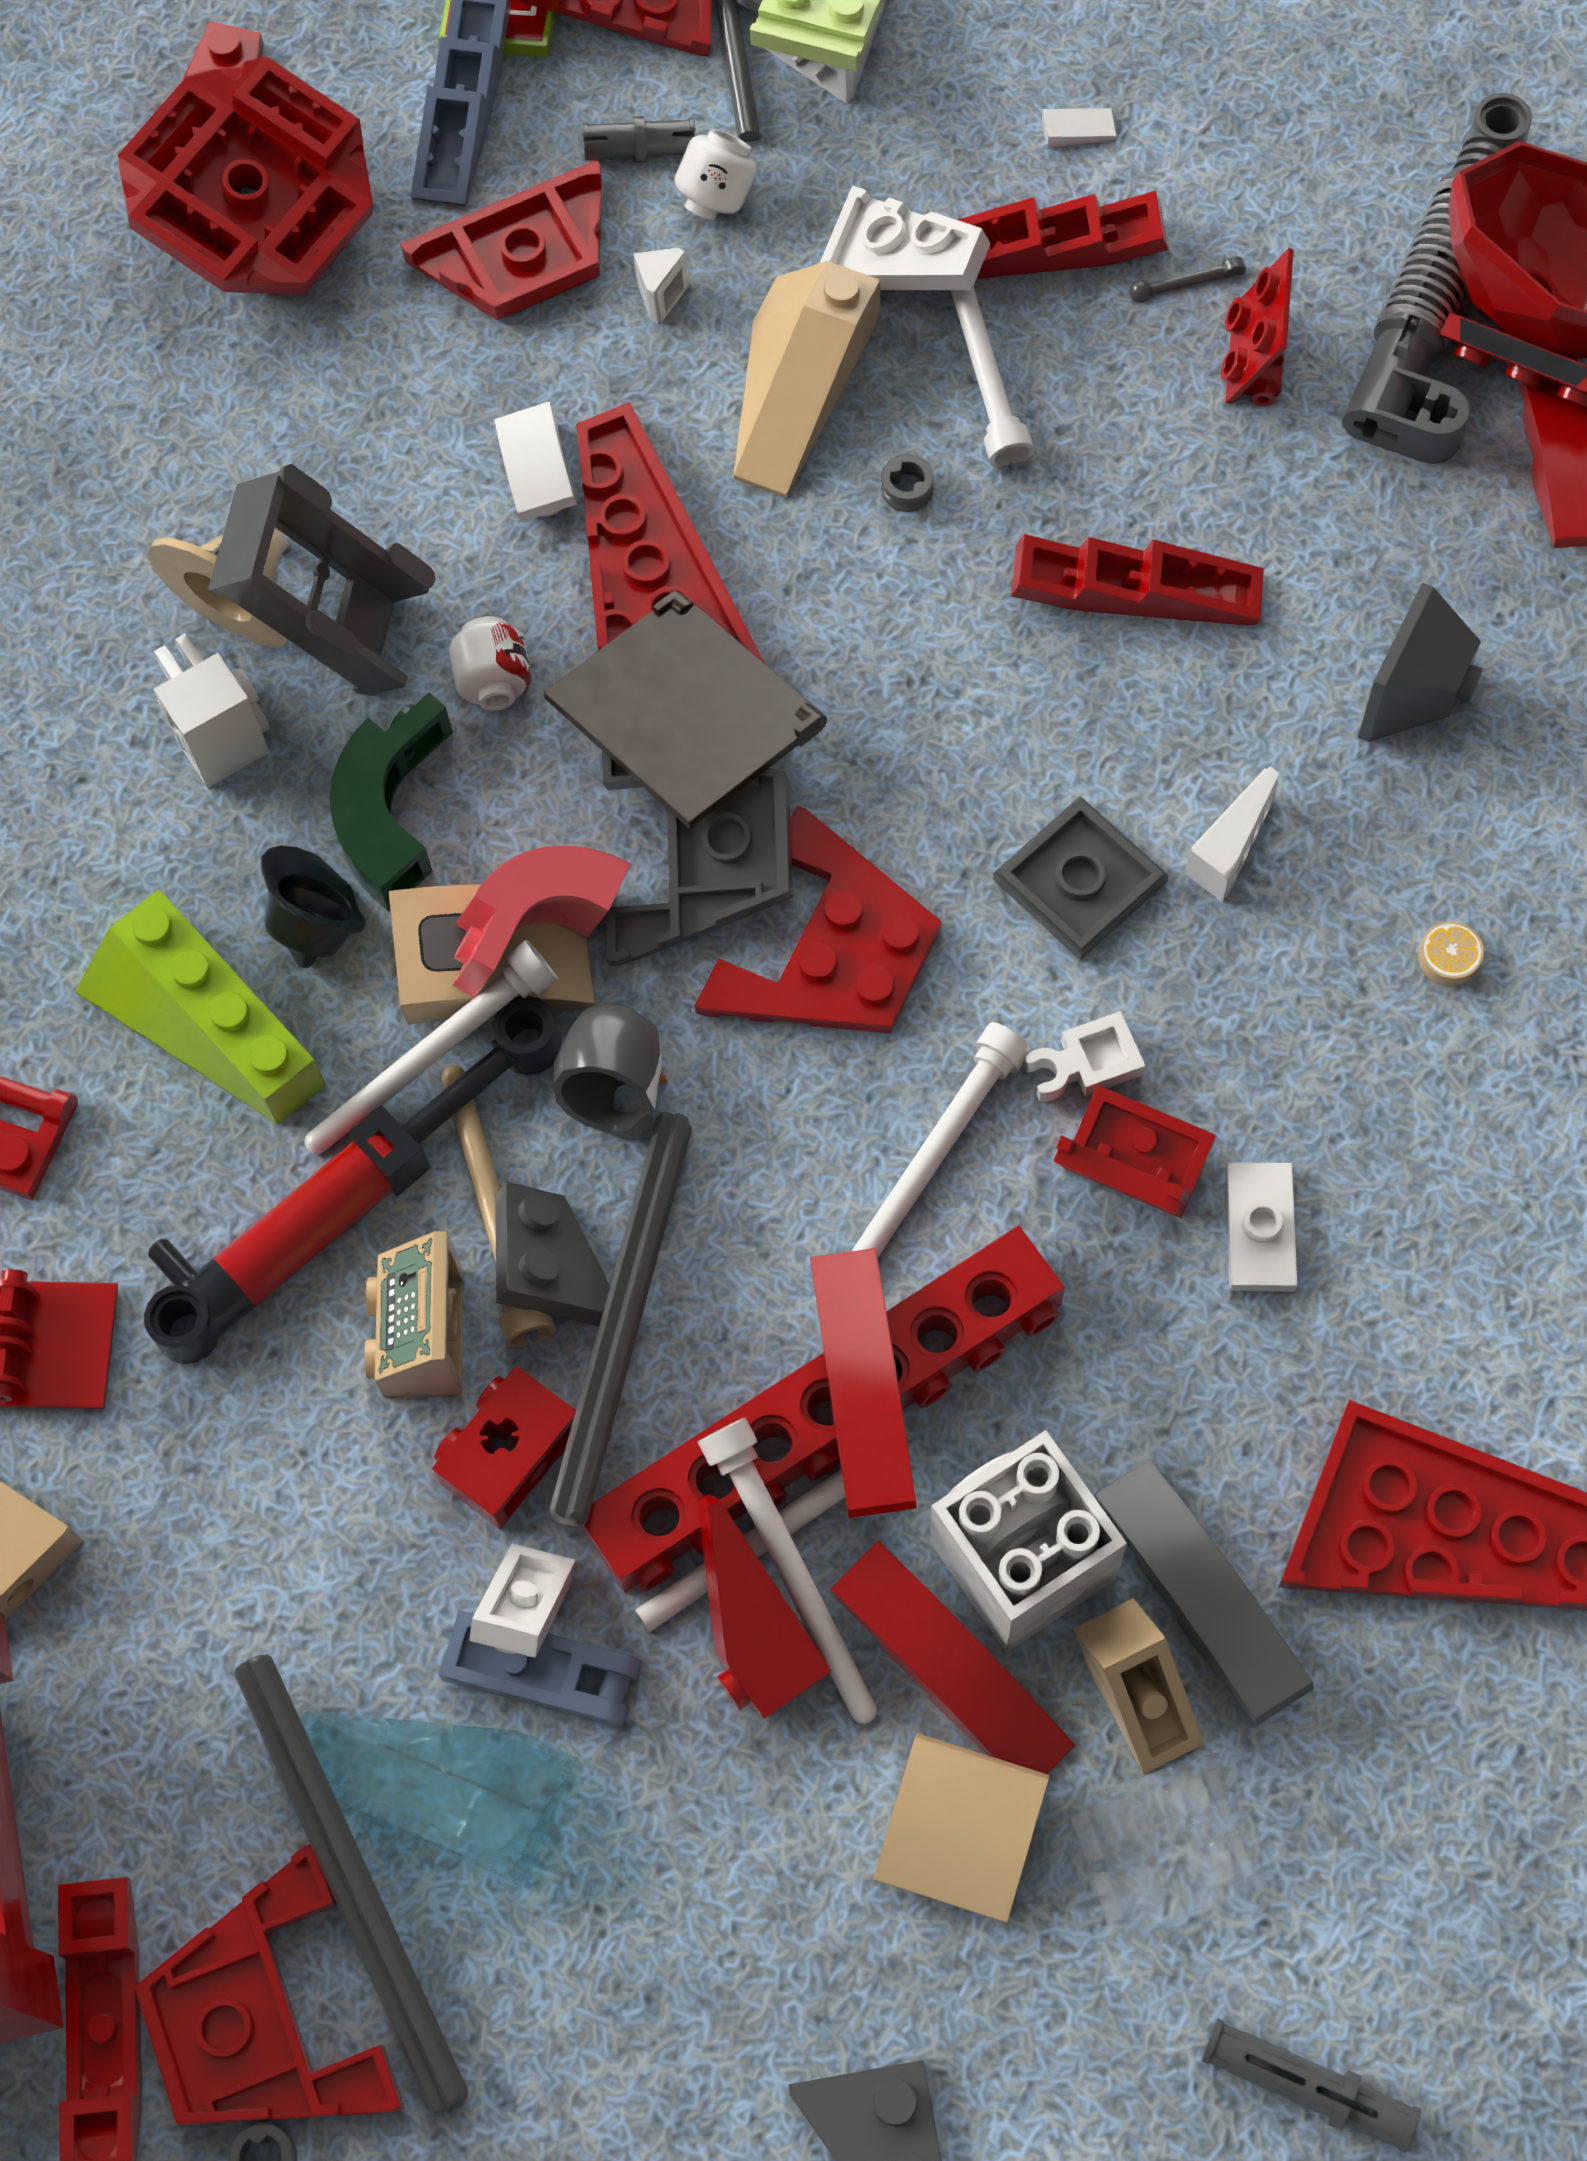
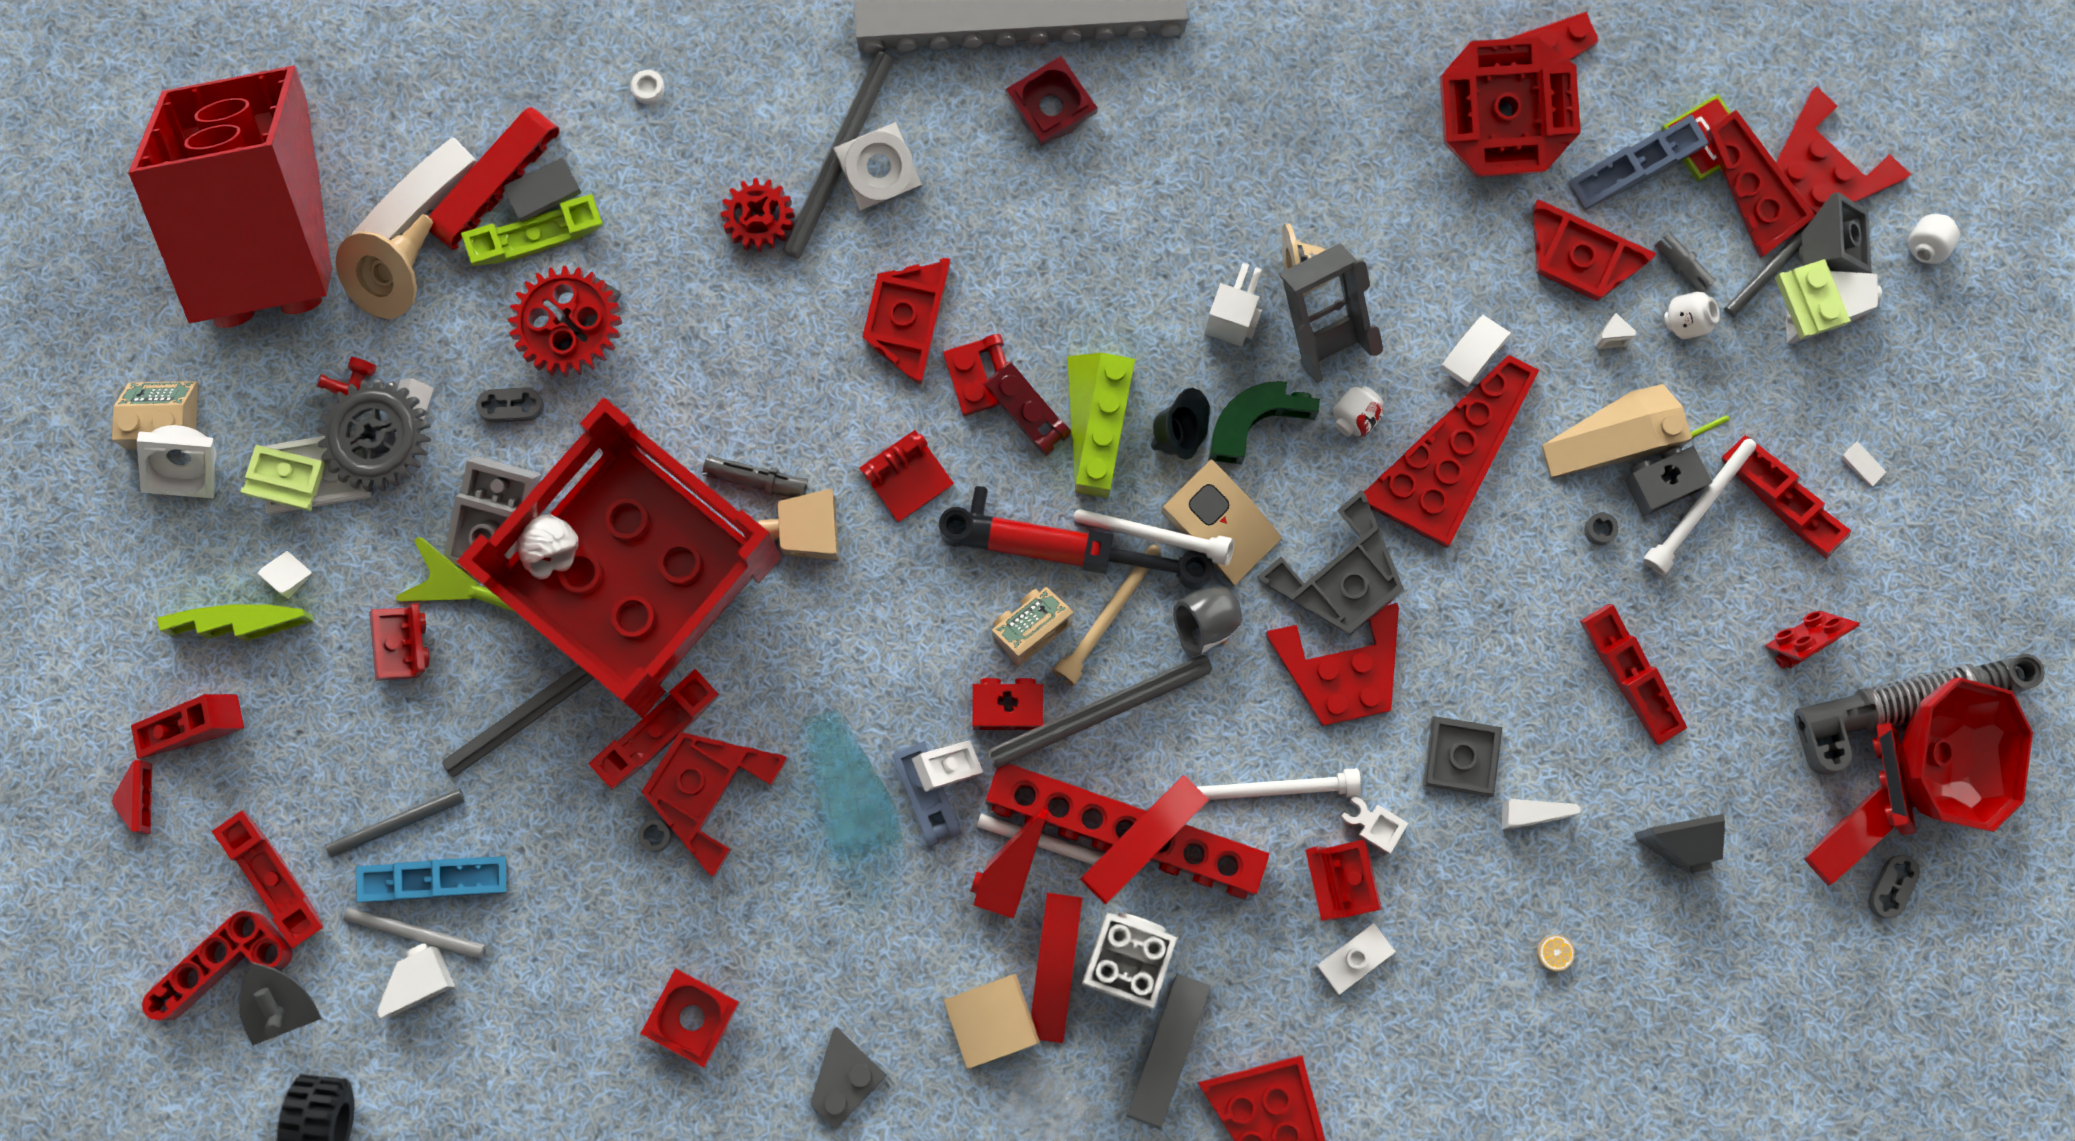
camera: 45 degrees right, 10 degrees up
(97, 1095) = (1026, 407): none -> dark red plate
(351, 1884) = (783, 784): dark grey axle -> none
(539, 886) = (1270, 527): coral arch -> none
(545, 1257) = (1102, 657): dark grey wing -> none
(685, 708) = (1400, 519): piece -> none
(733, 1454) = (1073, 806): white piece -> none
(905, 246) = (1720, 433): white wing -> none
(909, 355) = (1653, 493): none -> dark grey brick
(1140, 1684) = (1107, 1052): tan slope -> none
(1141, 290) = (1795, 561): dark grey hinge -> none

